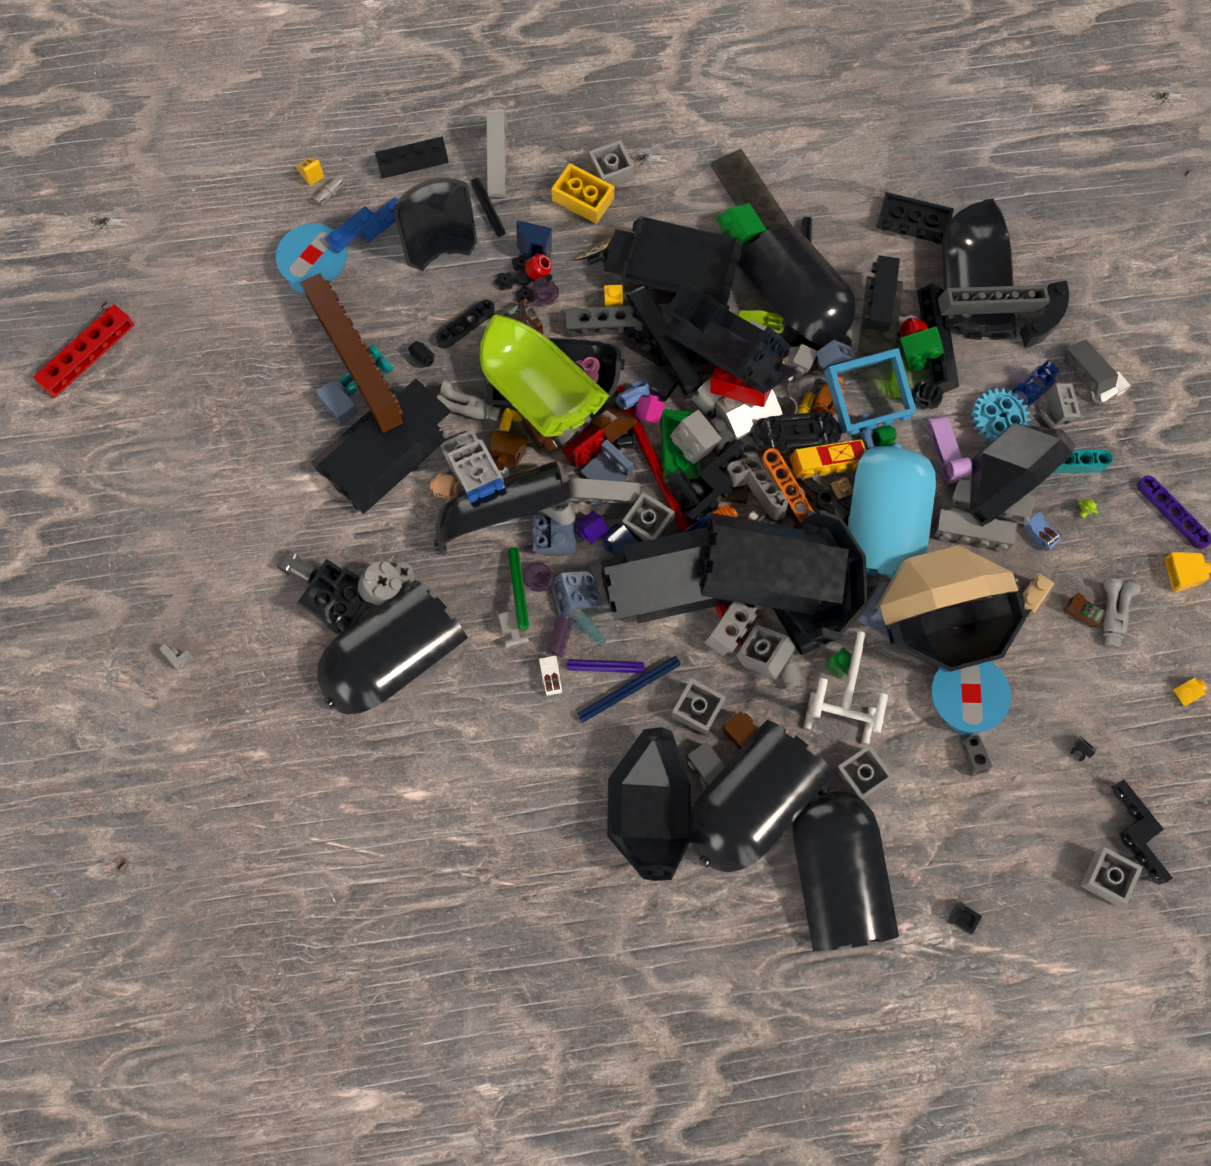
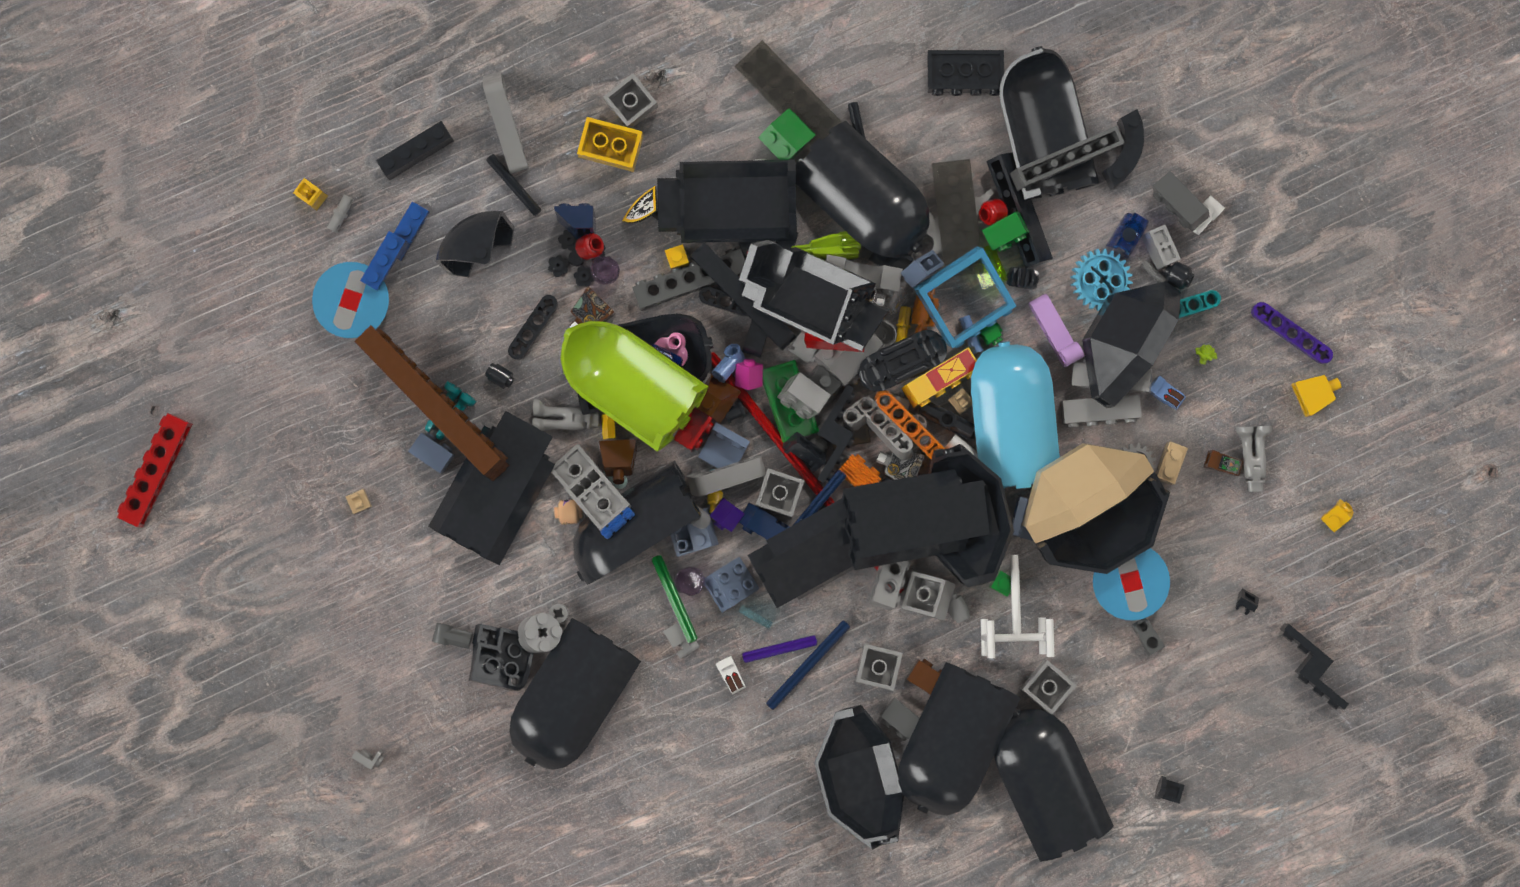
camera: 15 degrees left, 15 degrees up
(255, 427) = (358, 501): none -> tan tile
(560, 635) = (728, 632): clear purple axle -> none
(584, 509) = (714, 499): none -> yellow cylinder
(882, 293) = (953, 184): black brick -> none
(1076, 431) = (1179, 275): none -> black head
(1111, 876) = (1293, 718): light grey brick -> none

